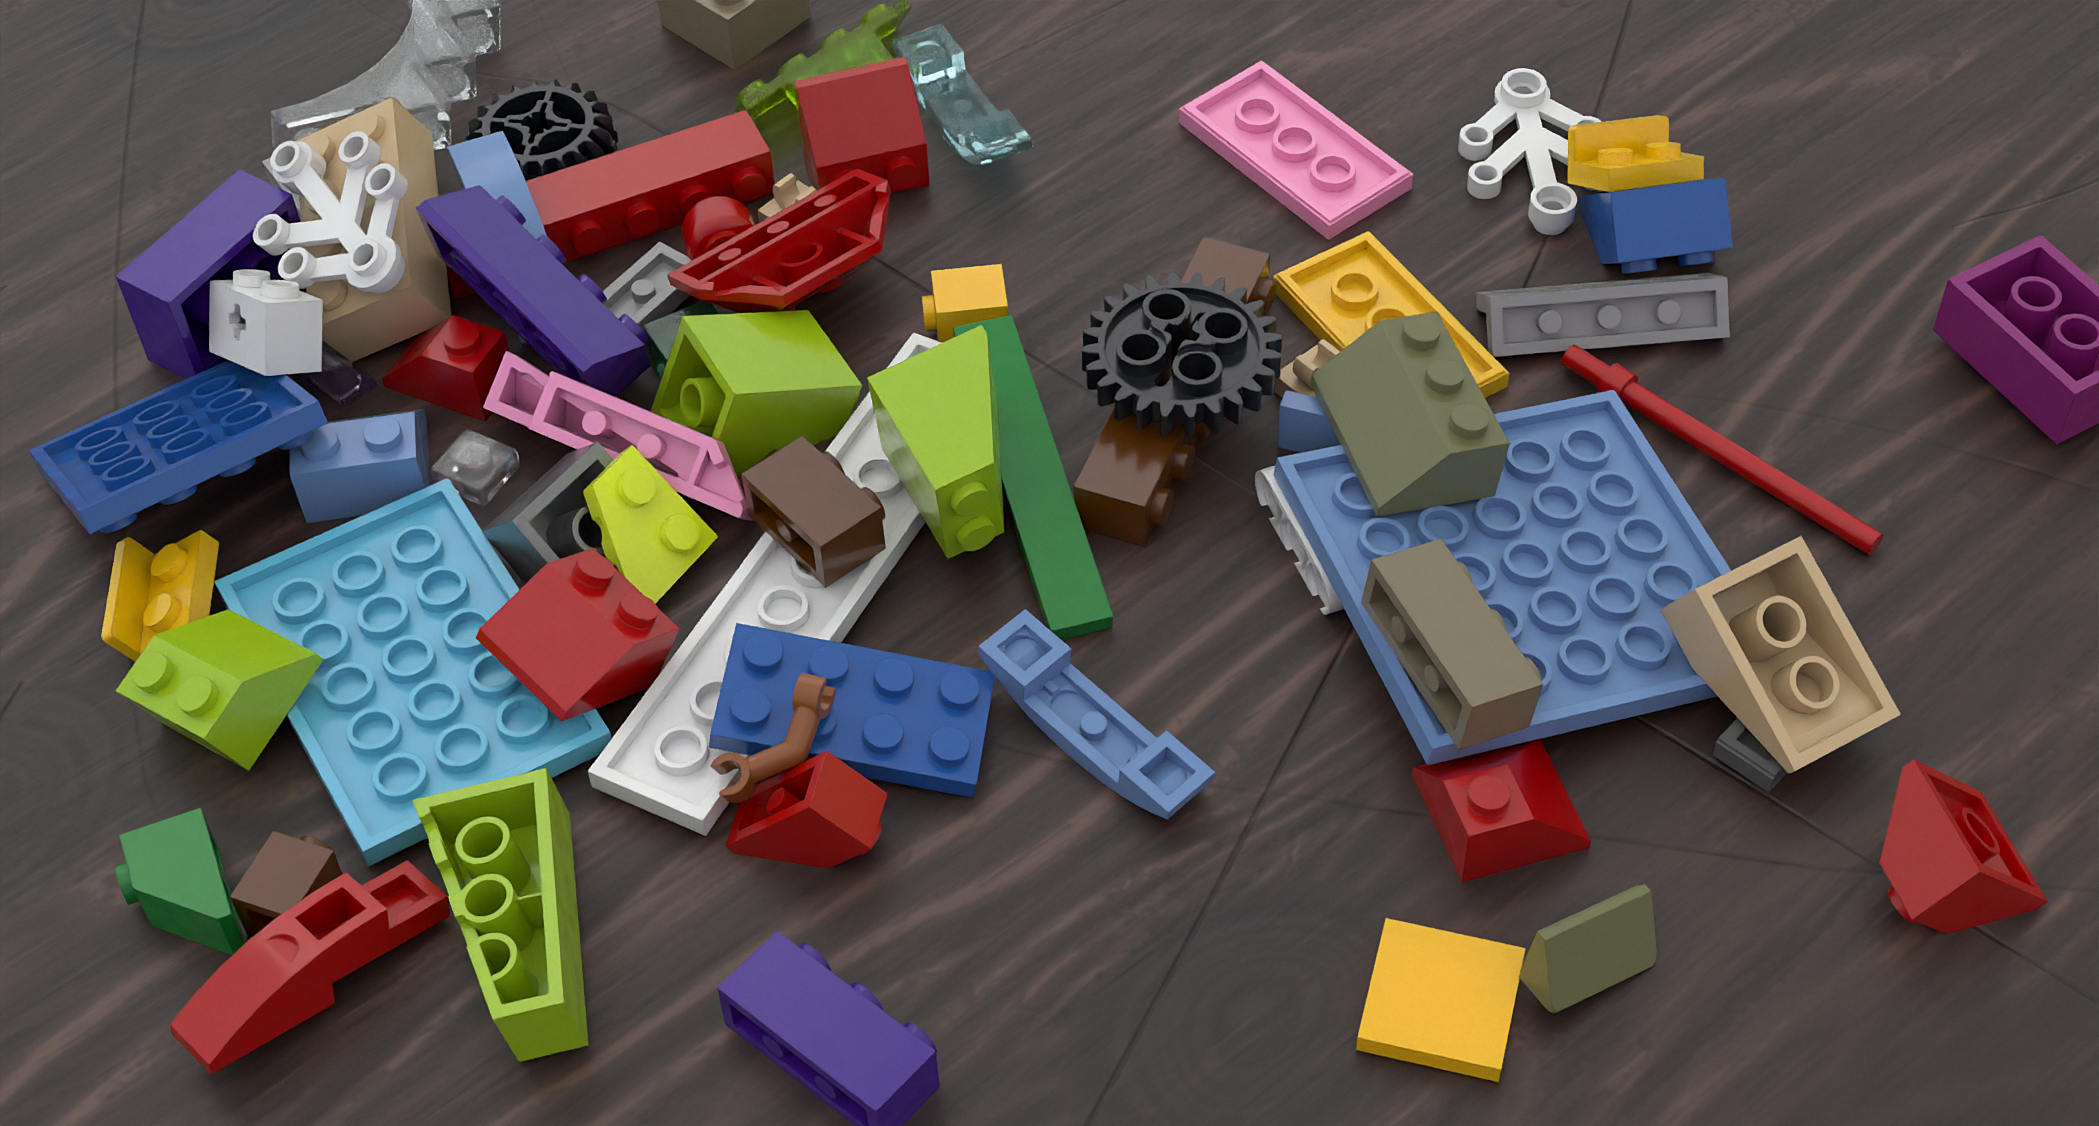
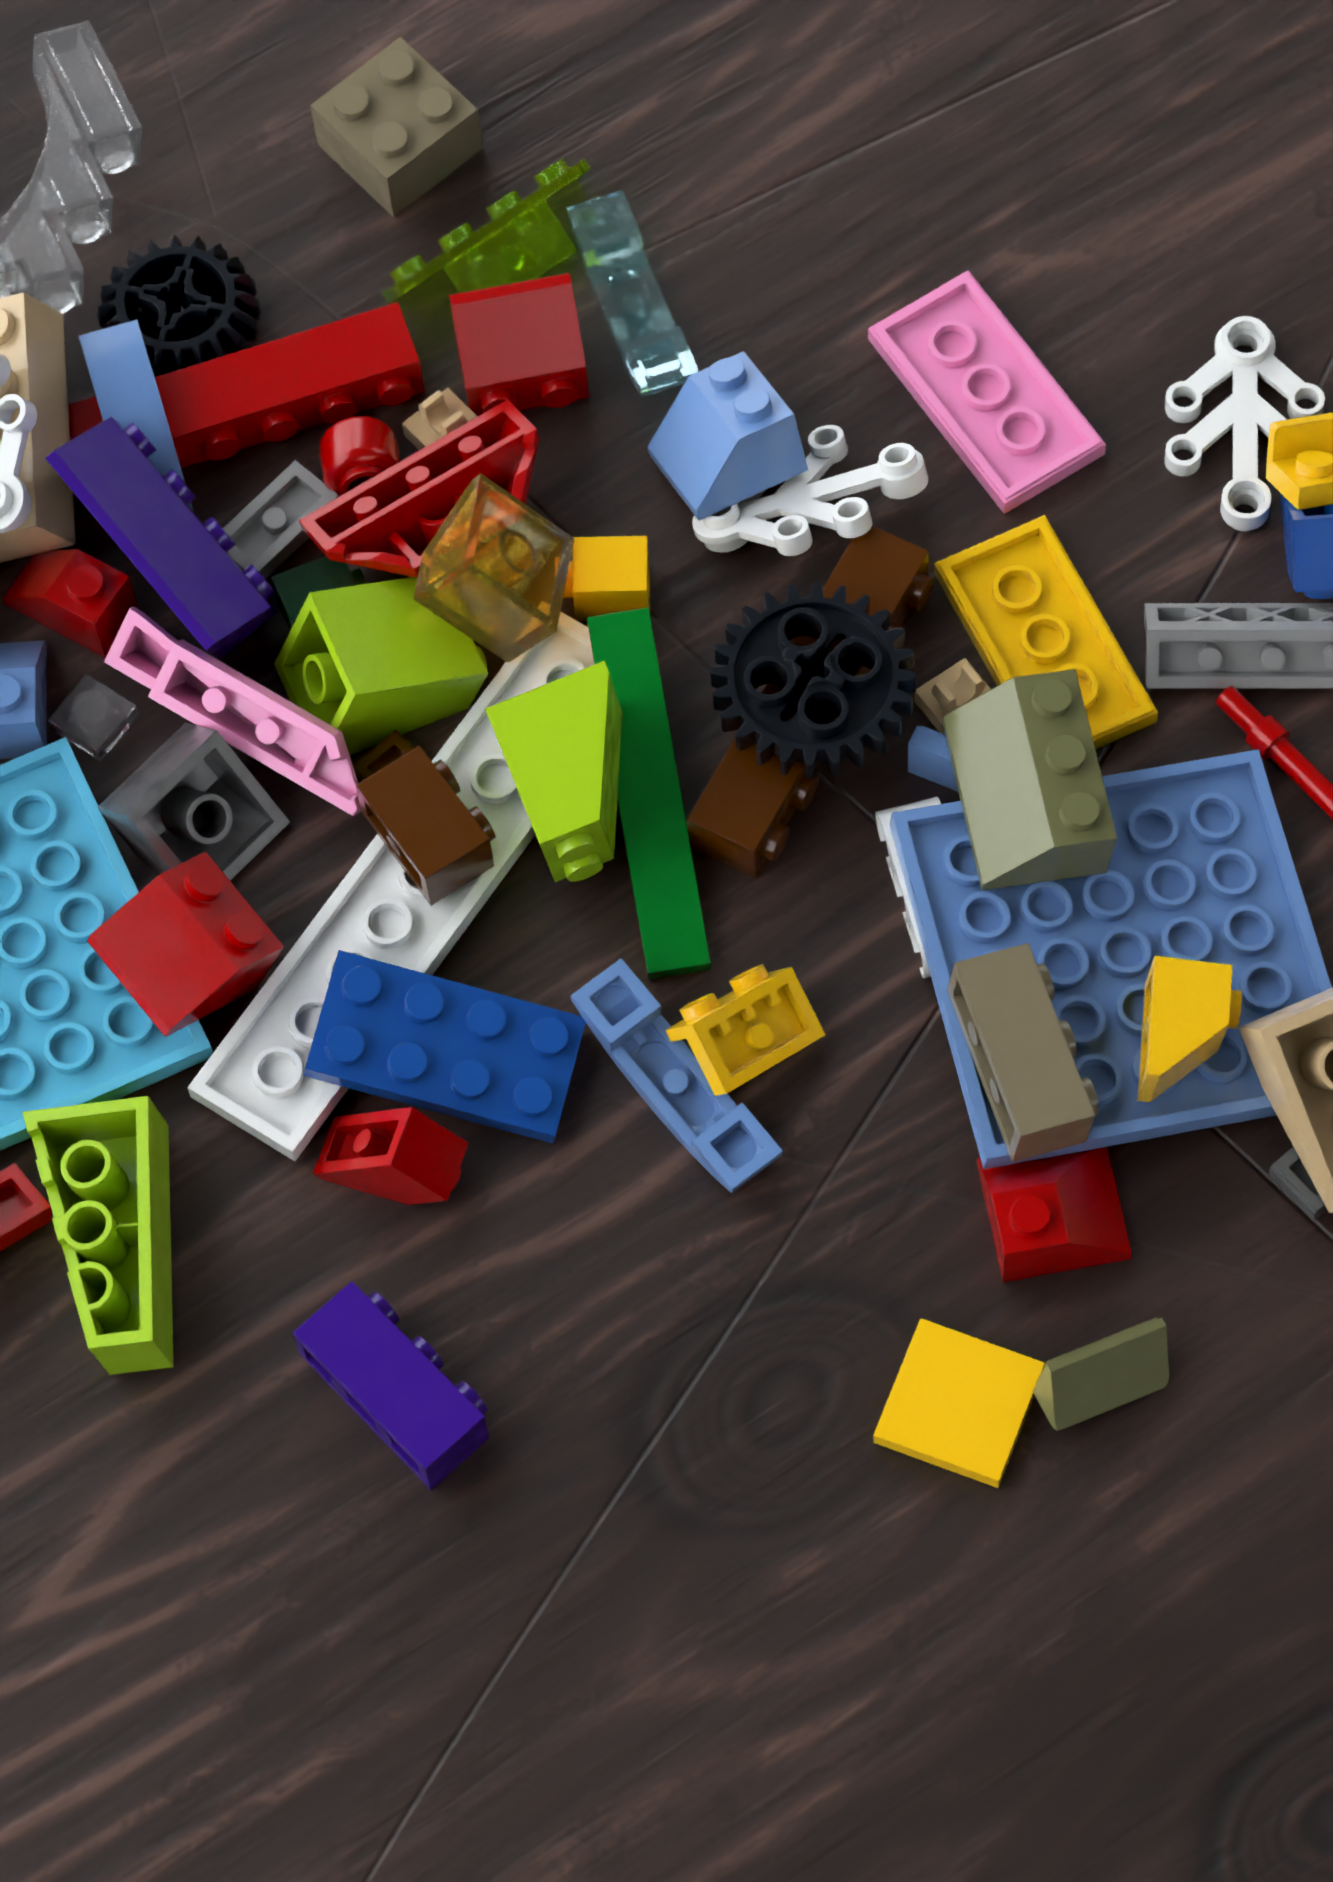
camera: 10 degrees right, 15 degrees up
(645, 524) = (258, 820): neon yellow wing -> none
(810, 704) = (401, 1051): dark orange arm -> none
(860, 293) = (496, 570): none -> clear yellow slope
(1066, 185) = (727, 437): none -> medium blue slope
(1136, 240) = (804, 498): none -> white plant
(1163, 664) = (749, 1027): none -> yellow bracket
(1604, 604) = (1183, 1020): none -> yellow slope

